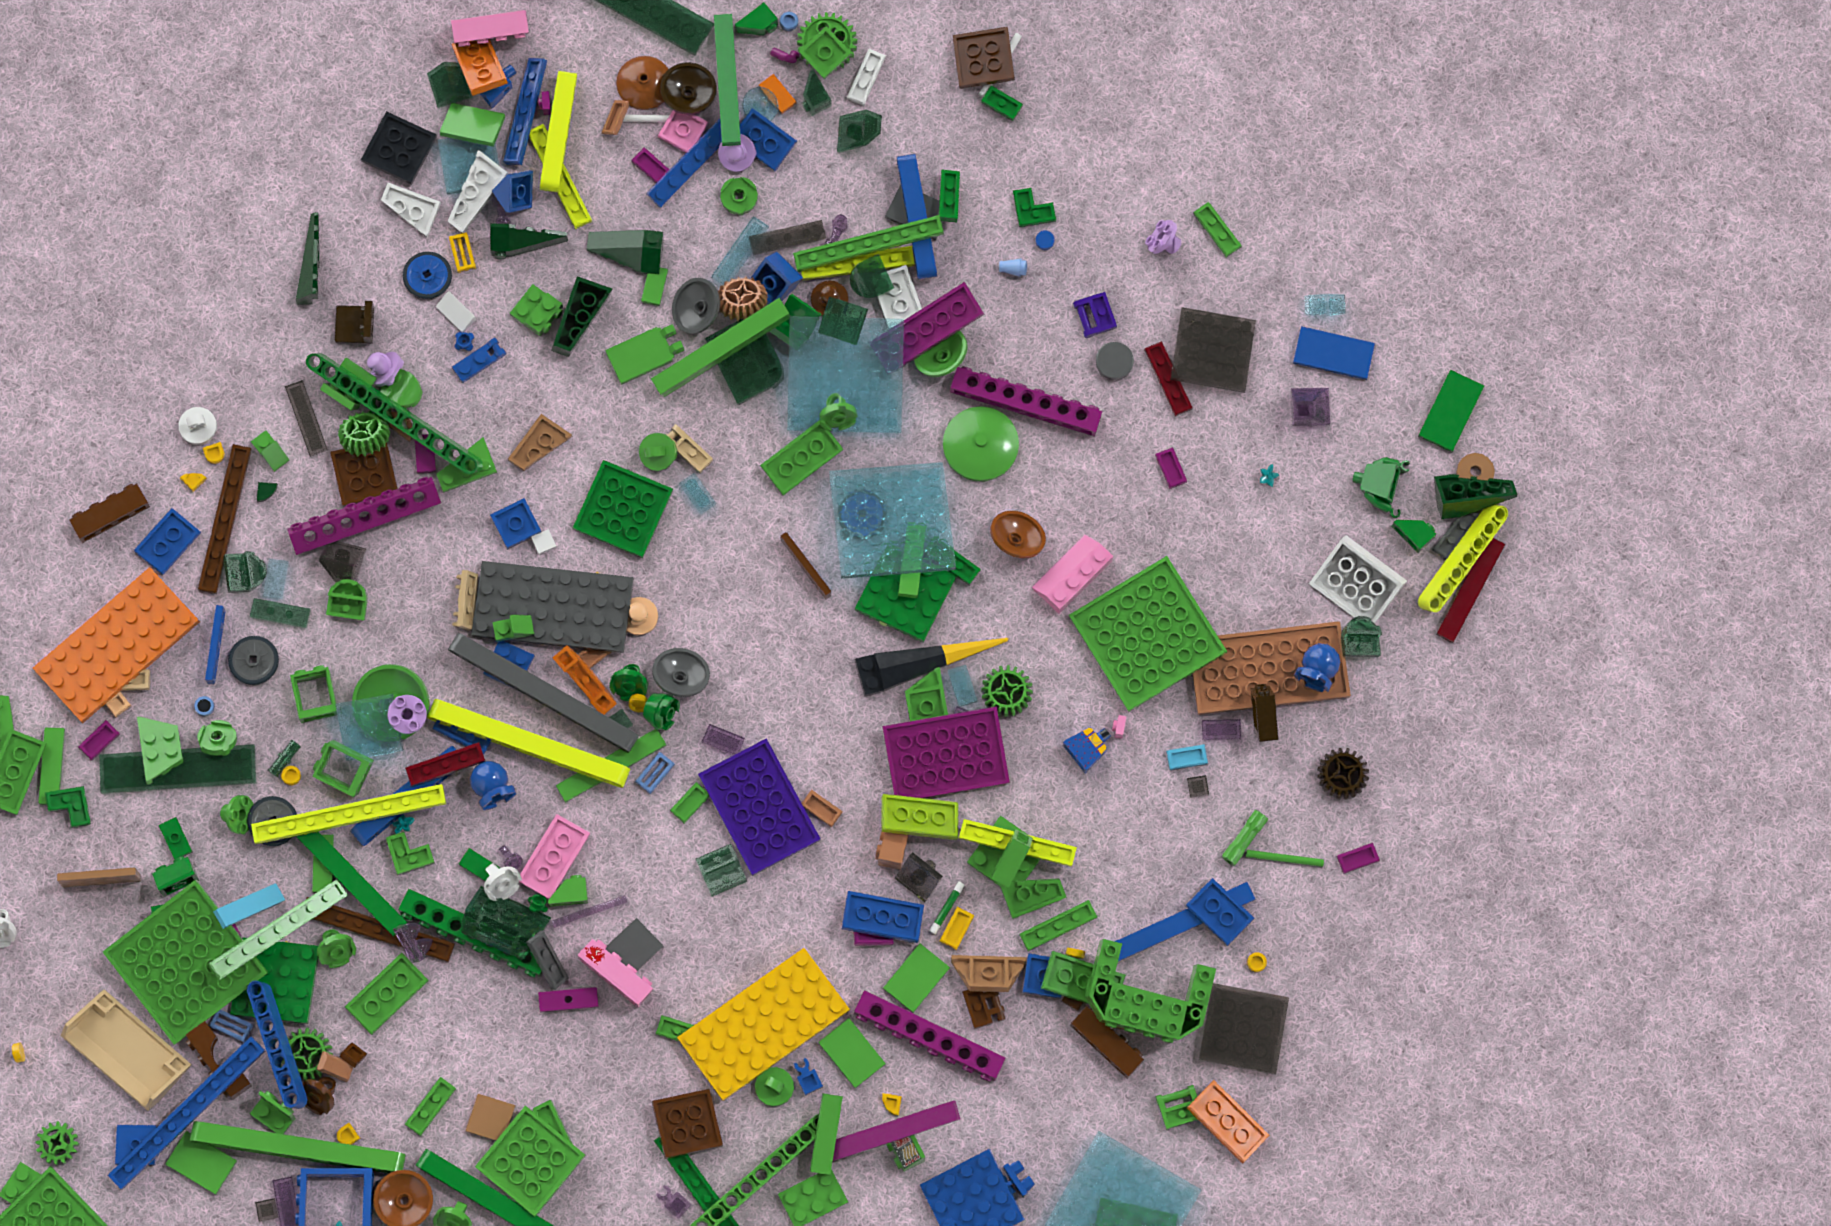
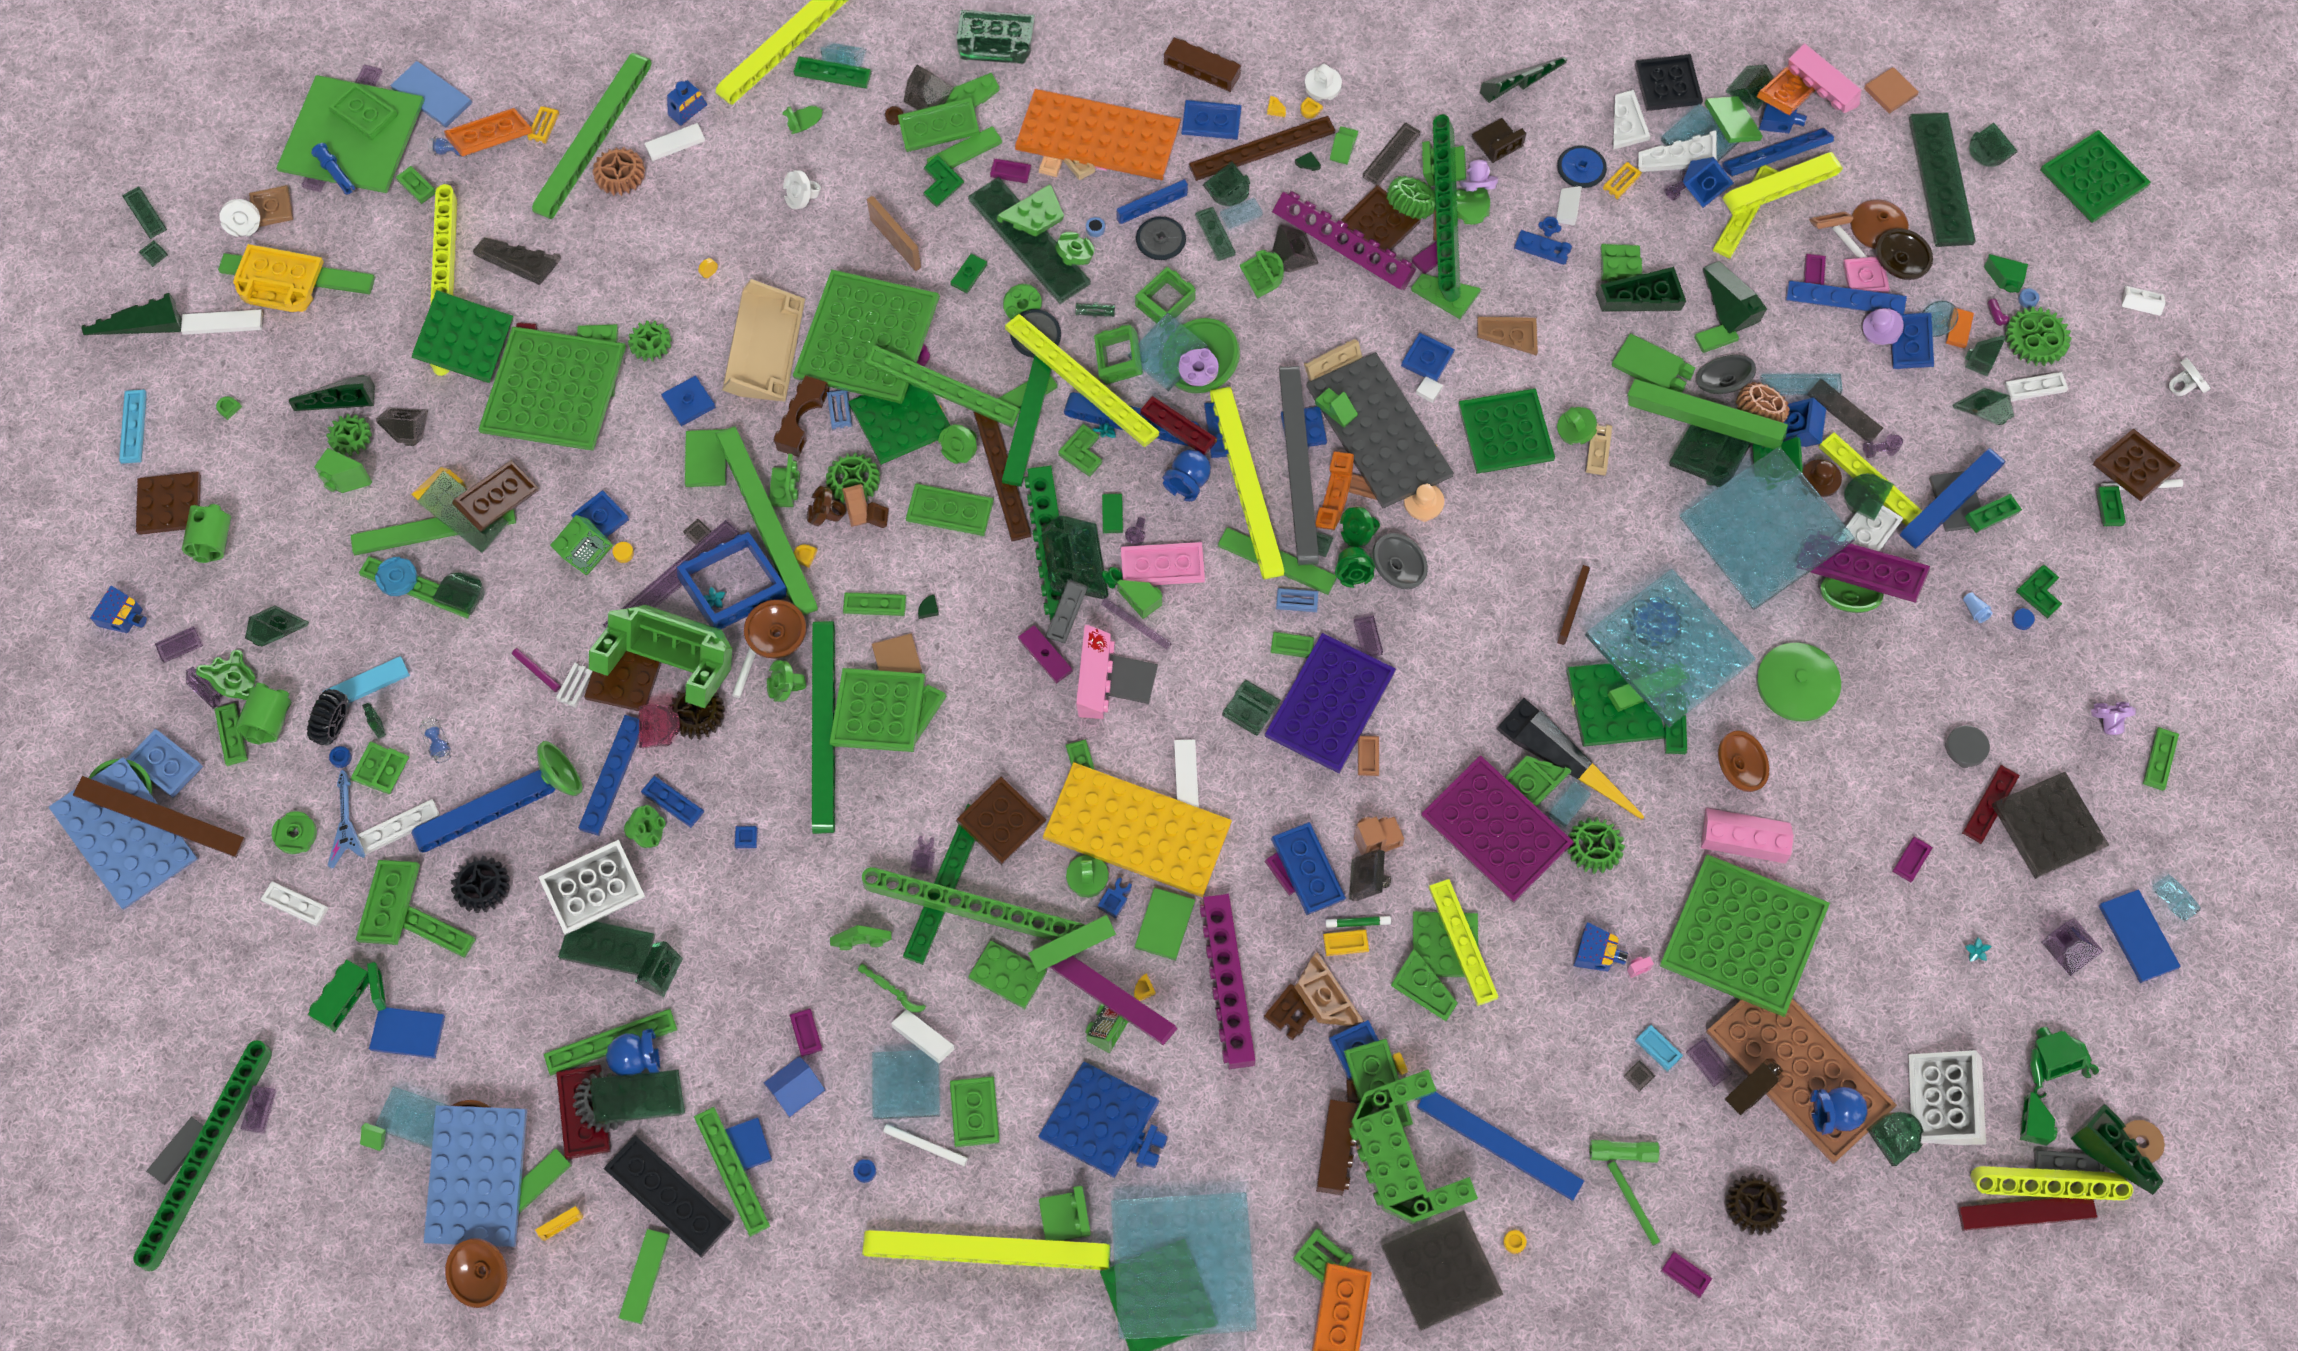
camera: 60 degrees right, 10 degrees down
(175, 876) = (933, 282): green slope -> none
(186, 1113) = (738, 415): blue plate -> none
(249, 905) = (947, 353): medium azure tile -> none
(270, 1038) = (841, 445): blue beam -> none
(291, 775) = (1084, 324): yellow tile -> none
(414, 948) = (1002, 504): clear purple tile -> none
(463, 1065) = (928, 607): none -> dark green tile
(501, 882) = (1108, 533): white tile -> none
(509, 241) = (1663, 208): dark green wedge -> none
(544, 103) = (1799, 158): magenta plate -> none
(637, 702) = (1346, 542): yellow tile -> none
(697, 493) = (1566, 481): clear light blue plate -> none
(727, 80) = (1936, 277): green tile -> none
(739, 185) = (1840, 359): bright green plate -> none
(741, 955) = (1186, 771): none -> white tile
(801, 457) = (1665, 541): bright green tile -> none
(825, 52) = (2028, 335): bright green plate -> none
(838, 414) = (1726, 540): bright green tile -> none
(842, 320) = (1811, 488): clear green slope -> none
(868, 243) = (1896, 473): bright green tile -> none
(916, 978) = (1274, 936): bright green tile -> none
(919, 817) = (1422, 841): lime tile -> none
(1011, 858) = (1443, 940): bright green window -> none
(1015, 404) = (1890, 761): magenta brick -> none
(1058, 925) = (1414, 1032): bright green tile -> none
(1101, 313) = (2000, 706): dark purple plate -> none
(1219, 912) = (1536, 1173): blue tile -> none
(1451, 411) = (2178, 1080): green tile -> none

